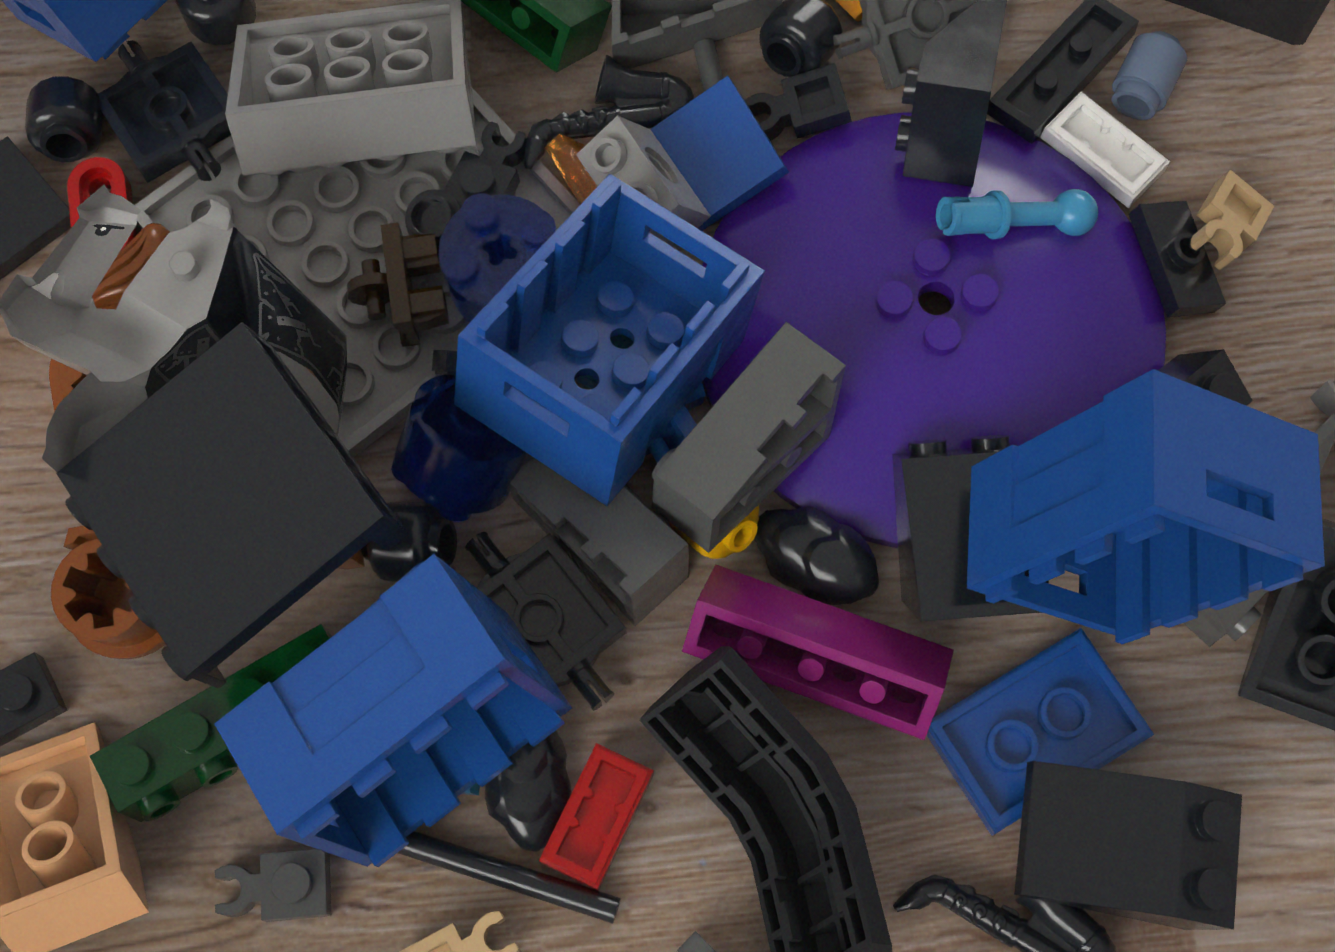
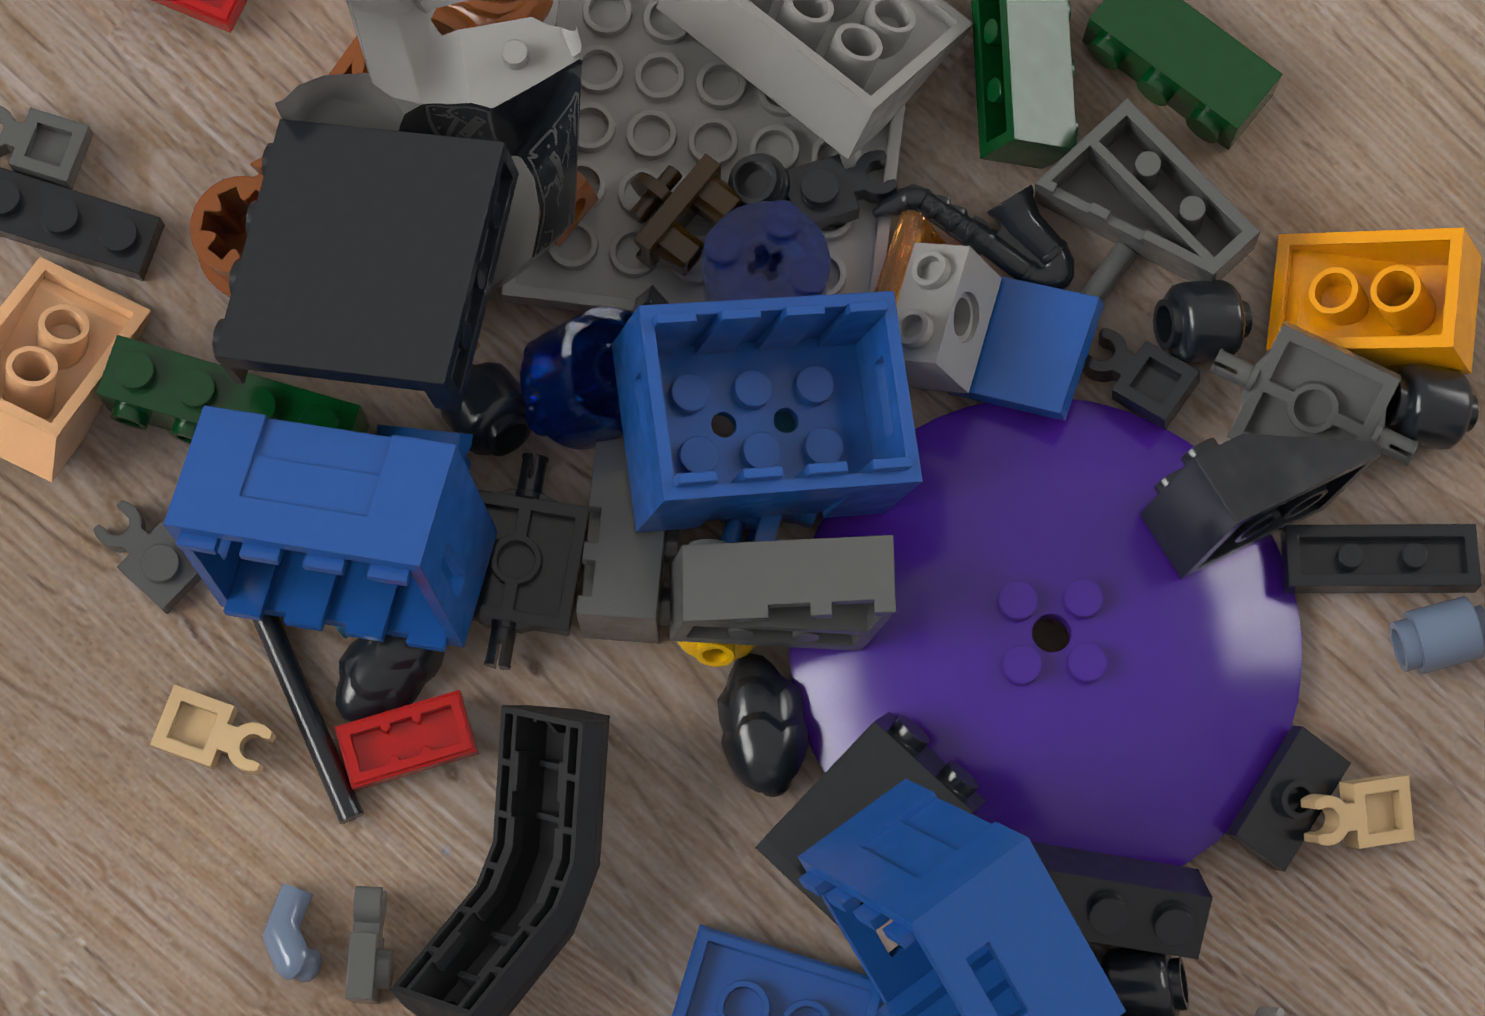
camera: 45 degrees right, 5 degrees up
(821, 651) = (679, 793): magenta brick -> none
(993, 214) = (1235, 677): dark azure pin -> none
(1105, 149) = (1335, 657): white plate -> none

